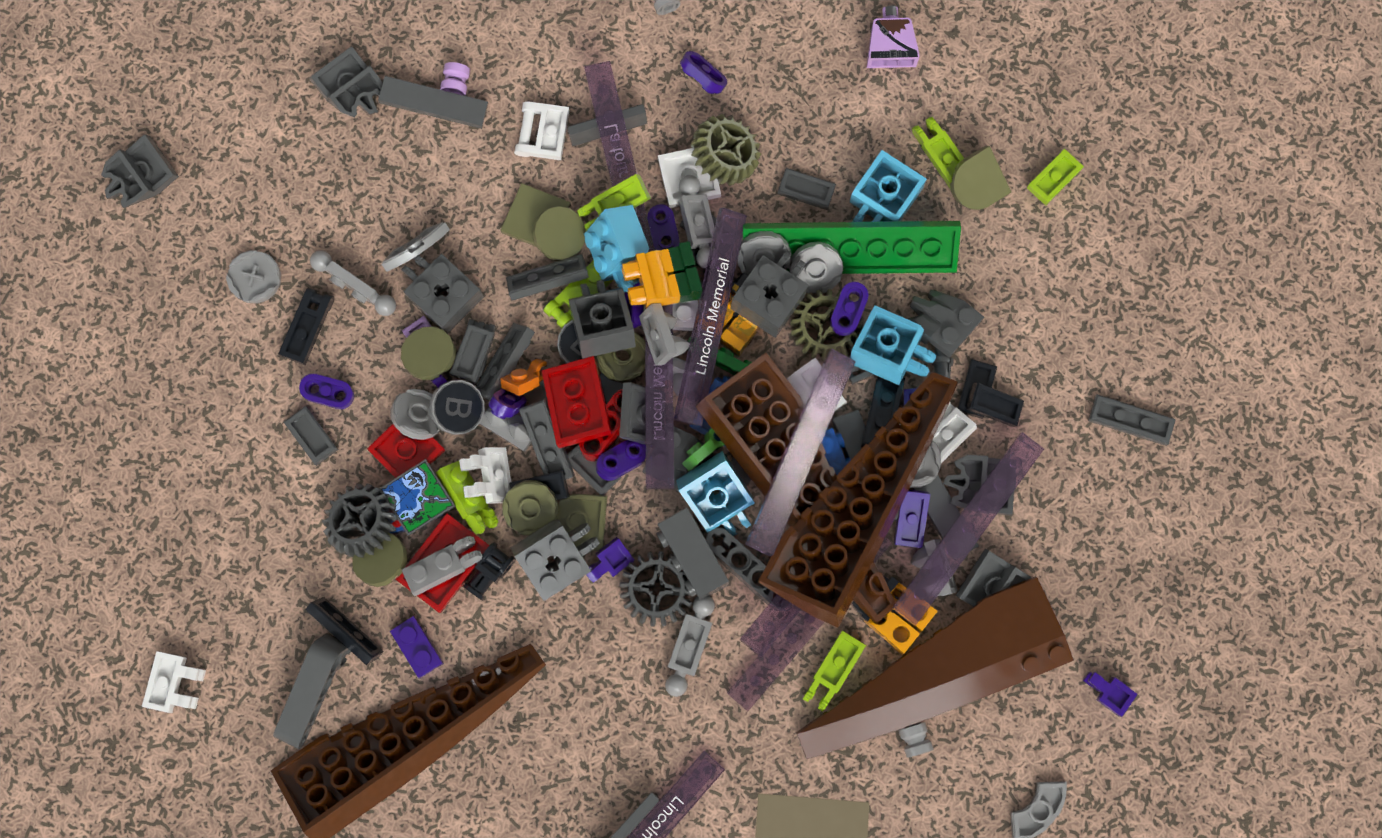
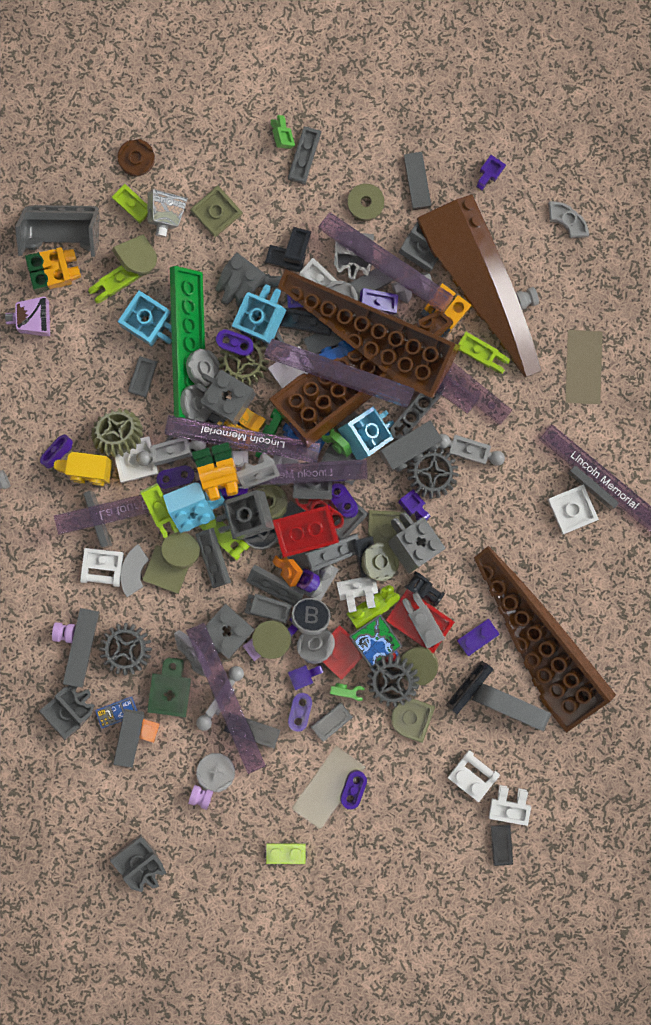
camera: 95 degrees left, 5 degrees up
(120, 669) = (501, 845): none -> black tile
(136, 368) = (286, 853): none -> lime plate
(213, 626) = (469, 781): none -> white plate
(215, 461) = (354, 789): none -> dark purple plate
(220, 254) = (200, 797): none -> lavender wheel
(222, 429) = (325, 788): none -> sticker
(306, 160) = (128, 738): none -> dark grey tile
(306, 549) = (412, 719): none -> olive tile
(319, 185) = (149, 730): none -> orange plate
(344, 148) = (114, 713): none -> tile
(349, 287) = (225, 698): none -> clear purple tile
(351, 449) = (341, 690): none -> bright green plate
(376, 398) = (302, 676): none -> dark purple plate
(382, 220) = (170, 680): none -> dark green plate
(419, 165) = (116, 635): none -> dark grey gear
(536, 171) = (132, 570): none -> light grey tile
(596, 796) = (572, 509): none -> white plate
(676, 108) = (86, 467): none -> yellow hinge
(959, 68) = (51, 270): none -> light orange hips
(1023, 74) = (58, 224): none -> dark grey windscreen
(1043, 219) = (165, 211): none -> torso
(1045, 293) = (216, 211): none -> olive tile
(1078, 506) = (365, 191): none -> olive tile
(1096, 583) = (417, 180): none -> dark grey tile
(1116, 191) = (139, 162): none -> reddish brown tile
(1160, 387) = (282, 134): none -> bright green plate

